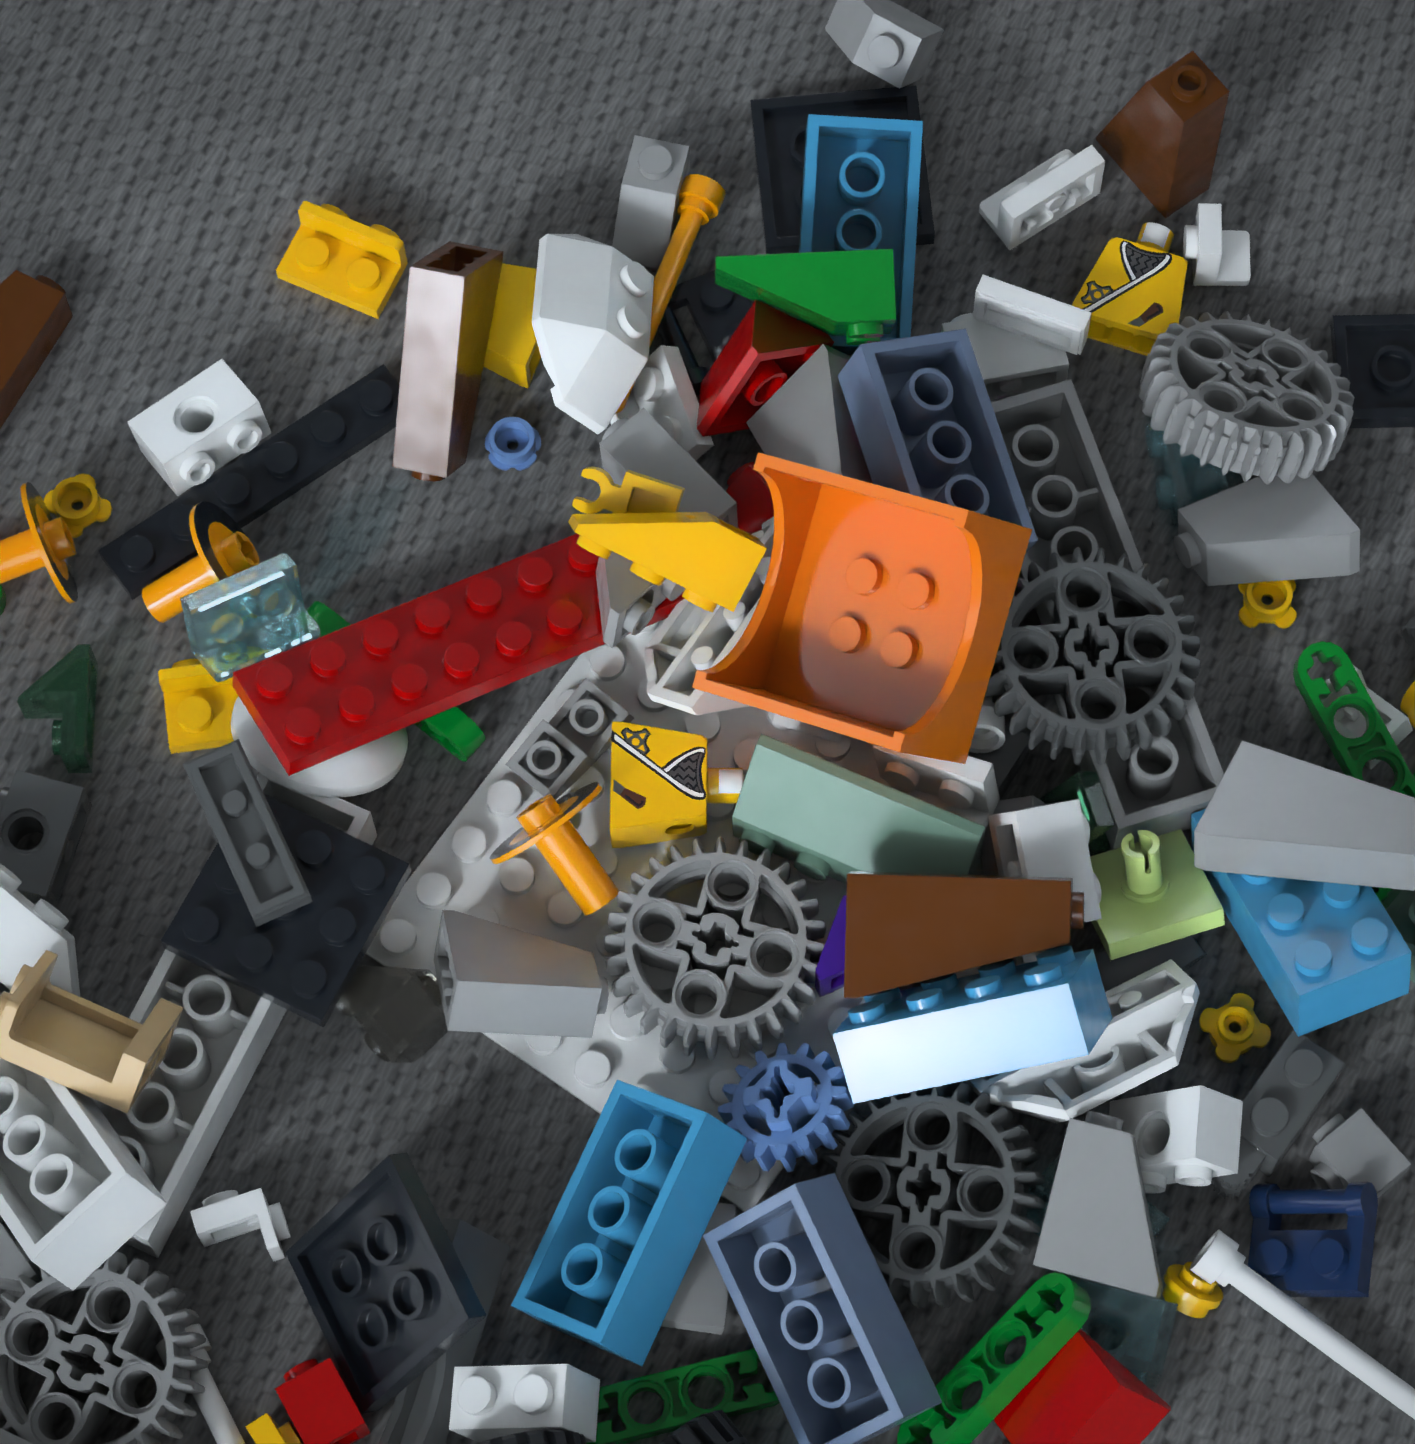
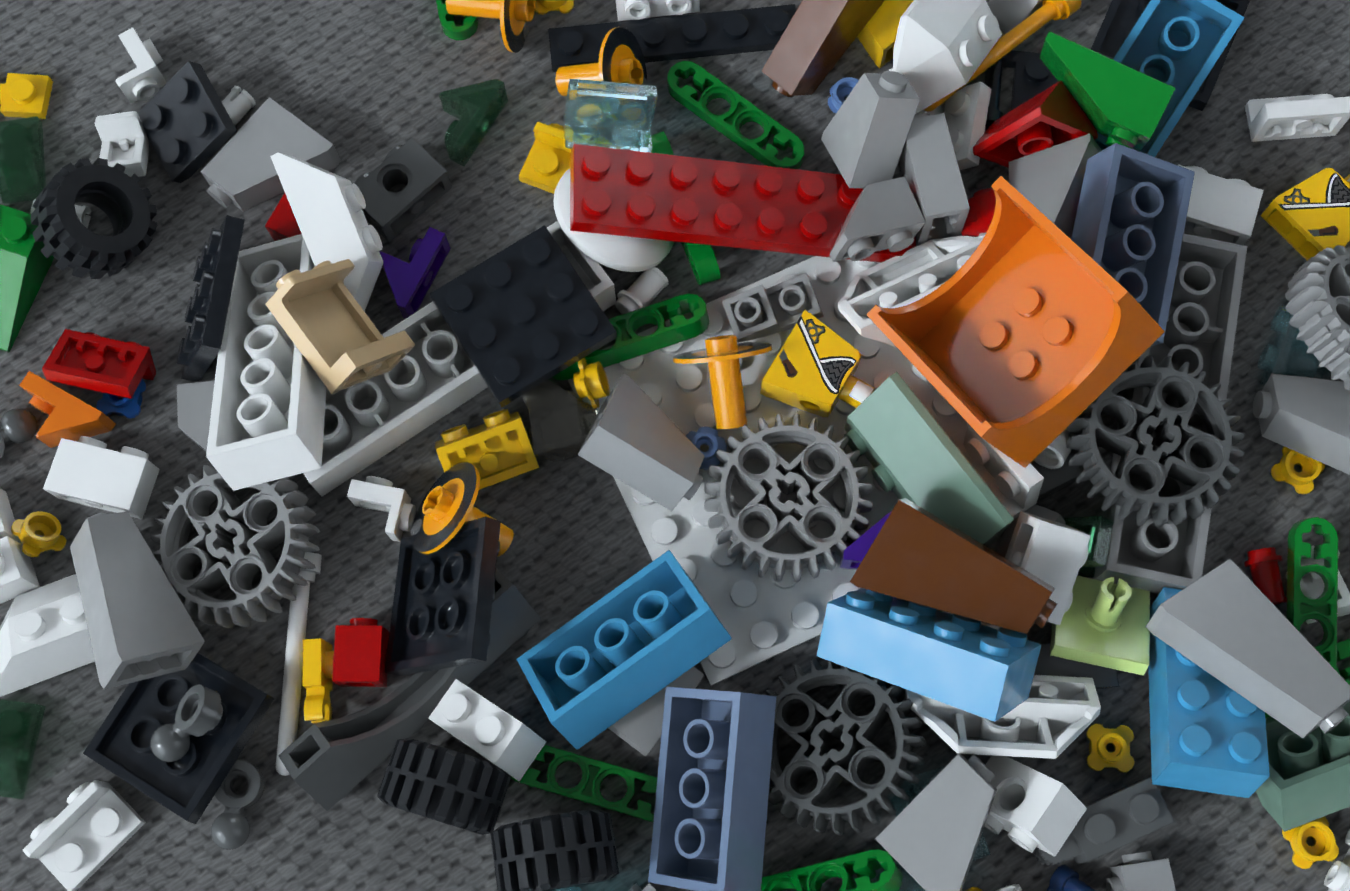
camera: 30 degrees right, 5 degrees up
(113, 943) = (413, 280): none -> dark purple slope
(247, 832) = (522, 253): dark grey tile -> none
(326, 1179) = (448, 507): none -> piece
(328, 1094) = (495, 448): none -> yellow bracket
(392, 529) = (740, 112): none -> green beam
(399, 819) = (642, 291): none -> white pin
(408, 941) = (591, 382): none -> yellow plate
(432, 872) = (630, 345): none -> green beam
(554, 449) = (871, 128): none -> light grey slope
(584, 929) = (710, 437): none -> medium blue plate
(635, 495) = (902, 174): yellow plate -> none
(687, 548) = (918, 221): yellow slope -> none
(785, 1103) = (773, 631): medium blue gear -> none
(1031, 315) = (1244, 188): white tile -> none
(1297, 737) = (1266, 573): none -> red pin

